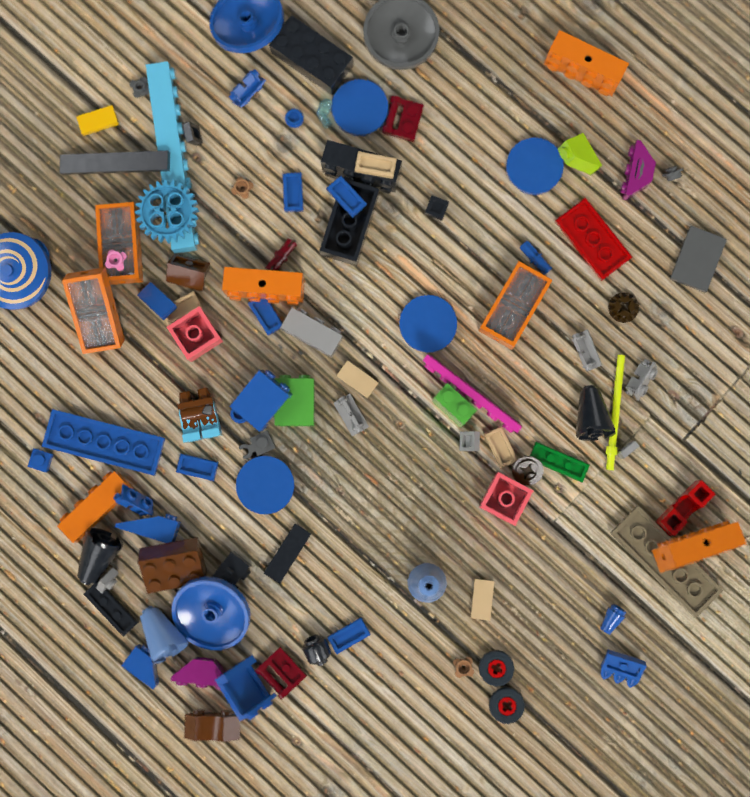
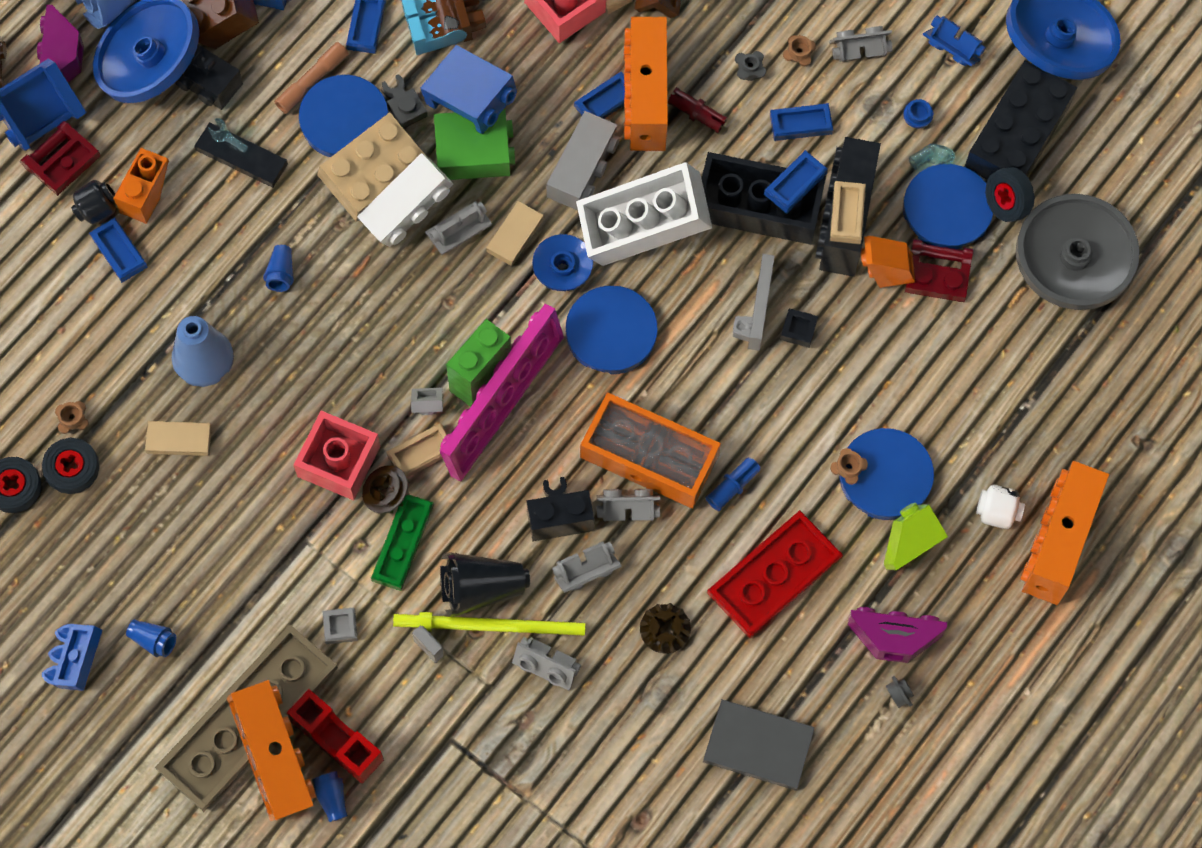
camera: 80 degrees right, 15 degrees down
(226, 495) = (324, 65): none -> nougat piece
(240, 155) = (849, 44): none -> light grey hinge
(255, 224) = (750, 73): none -> dark grey plate
(277, 560) = (224, 135): none -> clear light blue hand
(307, 618) = (142, 186): none -> orange slope
(308, 466) = (368, 164): none -> tan brick
(336, 446) = (405, 201): none -> white brick
(356, 61) = (1020, 194): none -> black bush
(361, 294) = (644, 214): none -> white brick
(374, 531) = (279, 269): none -> blue cone
(380, 340) = (562, 250): none -> blue dish
(402, 146) = (888, 261): none -> orange slope
(435, 235) = (751, 328): none -> light grey hinge
(531, 180) = (846, 457): none -> medium nougat plate
(544, 314) = (615, 503): none -> light grey hinge
(550, 364) = (560, 513): none -> black brick
(562, 101) = (1000, 507): none -> white head
(610, 503) = (340, 625): none -> light grey tile
(715, 513) = (330, 795): none -> blue cone

